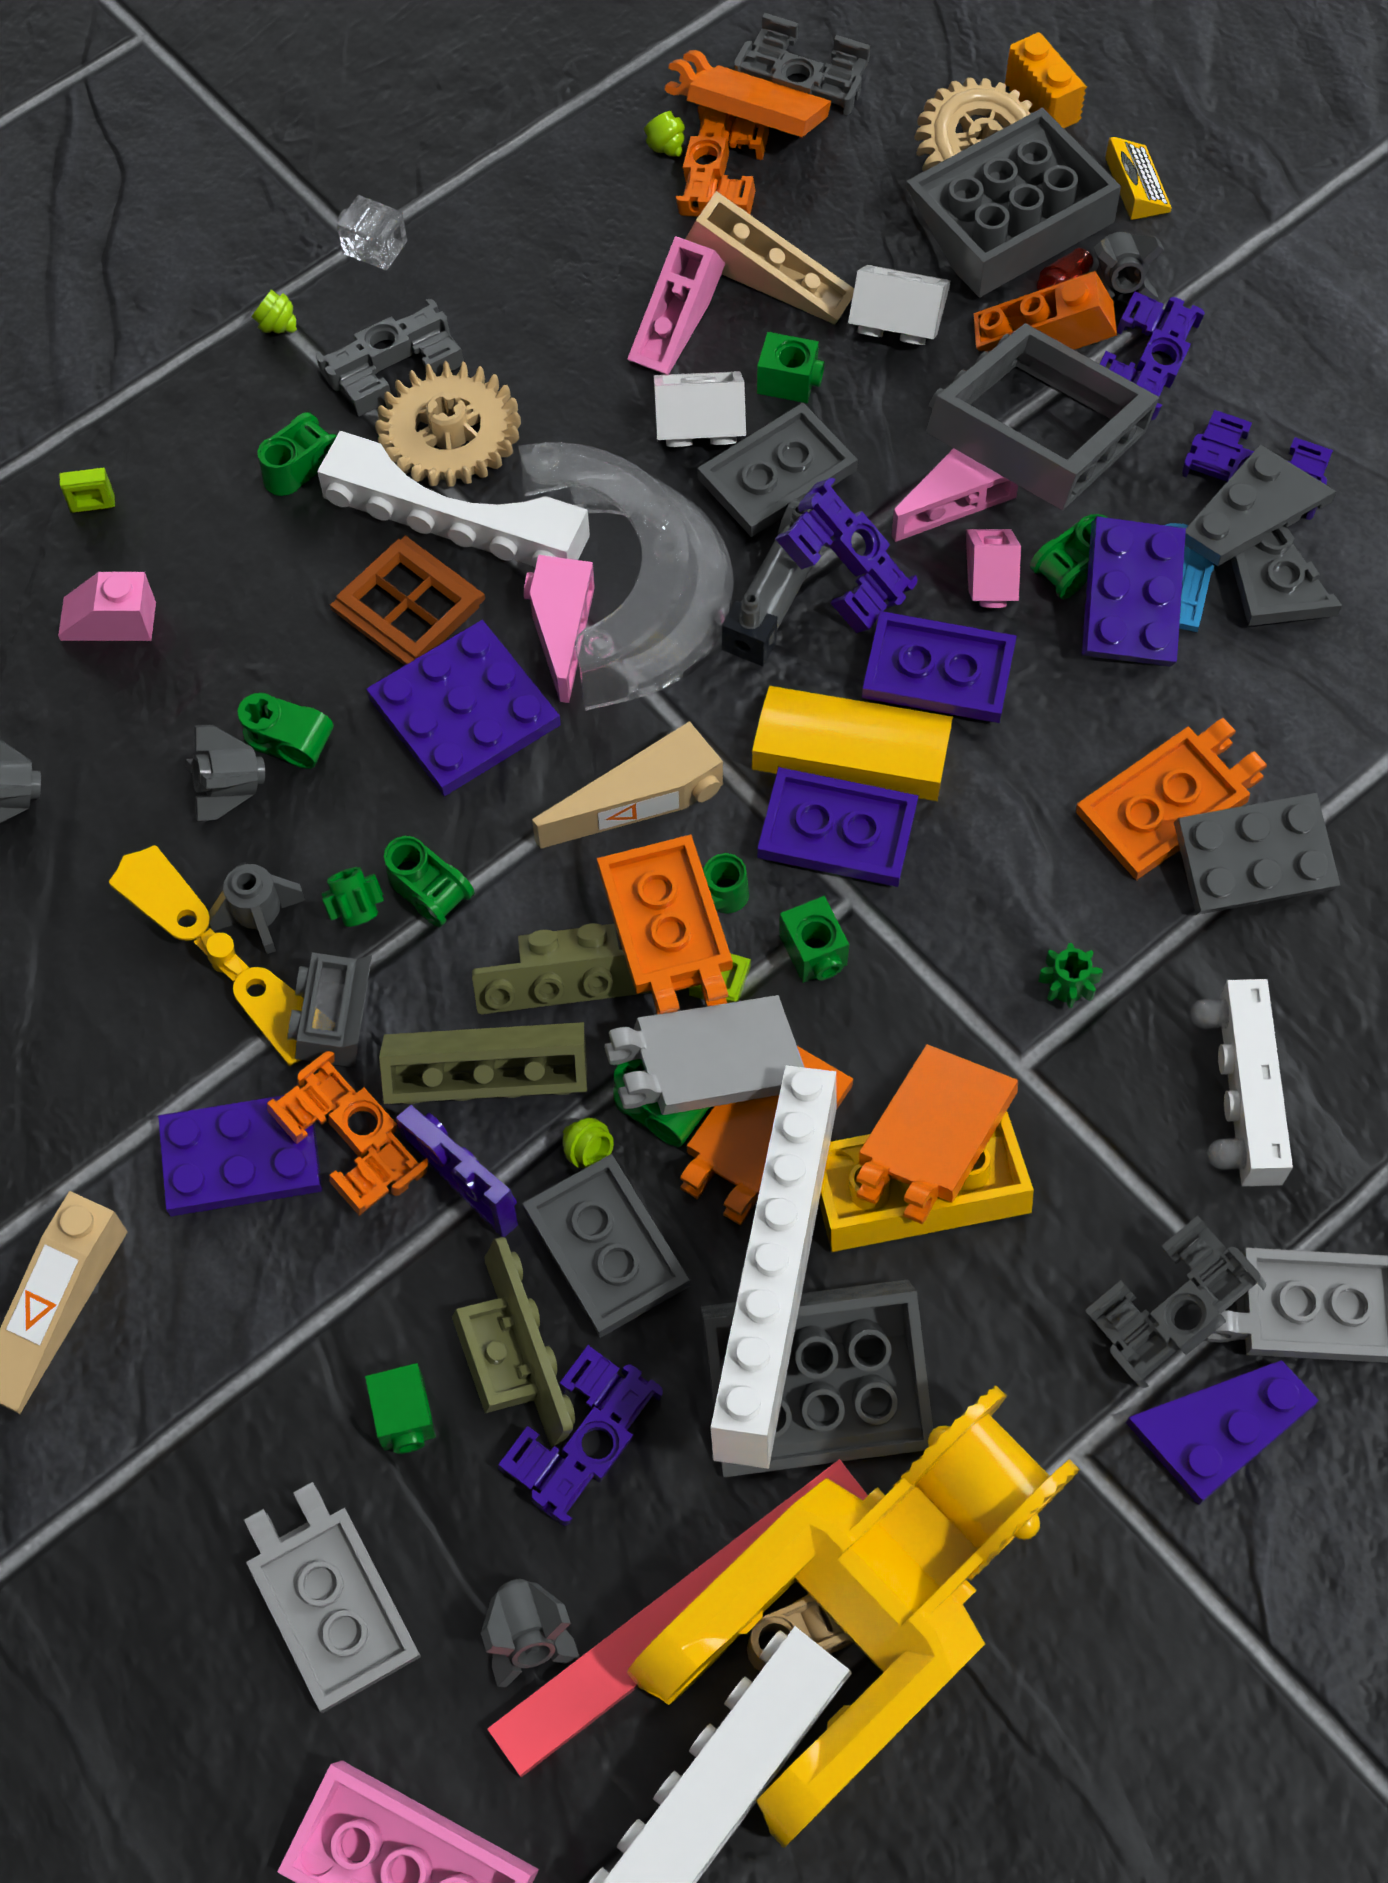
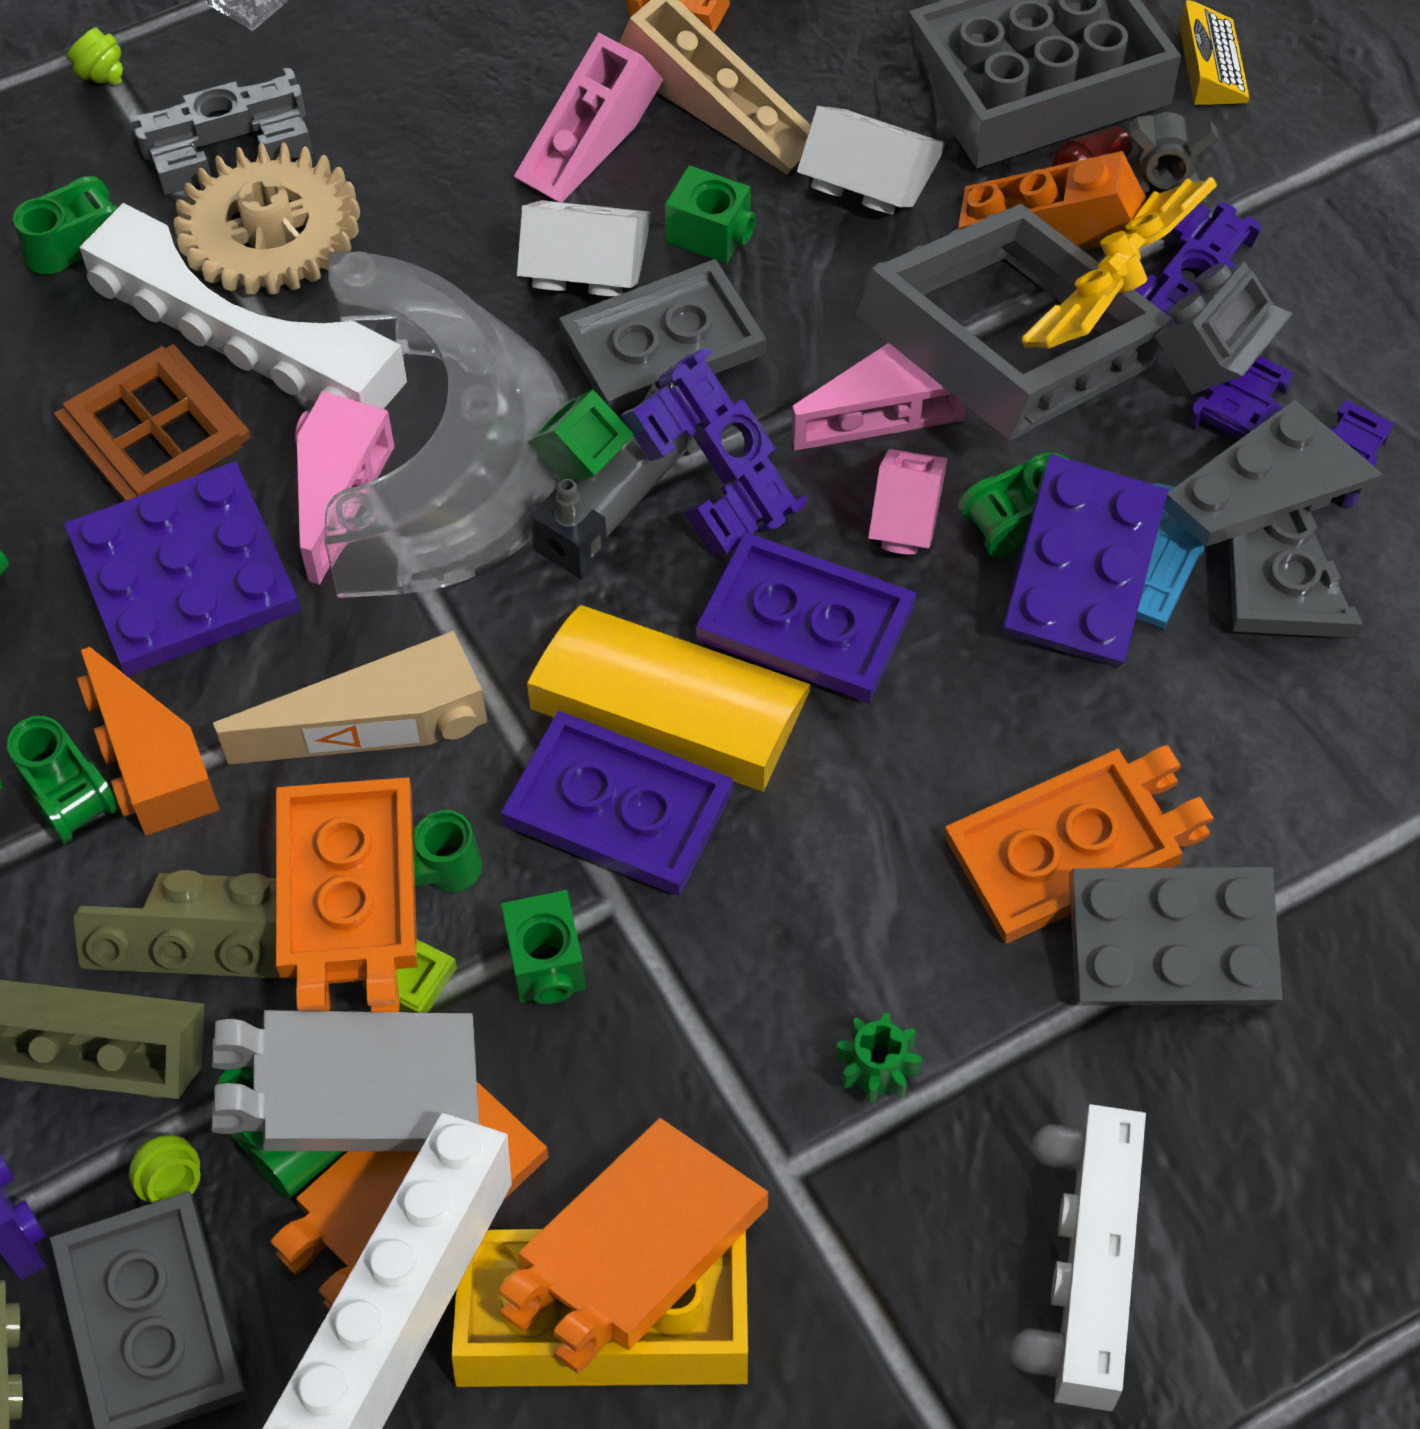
camera: 10 degrees right, 5 degrees down
(490, 848) = (153, 746): none -> orange slope
(746, 560) = (580, 437): none -> green brick
(1103, 386) = (1120, 268): none -> yellow piece
(1195, 397) = (1220, 327): none -> dark grey window

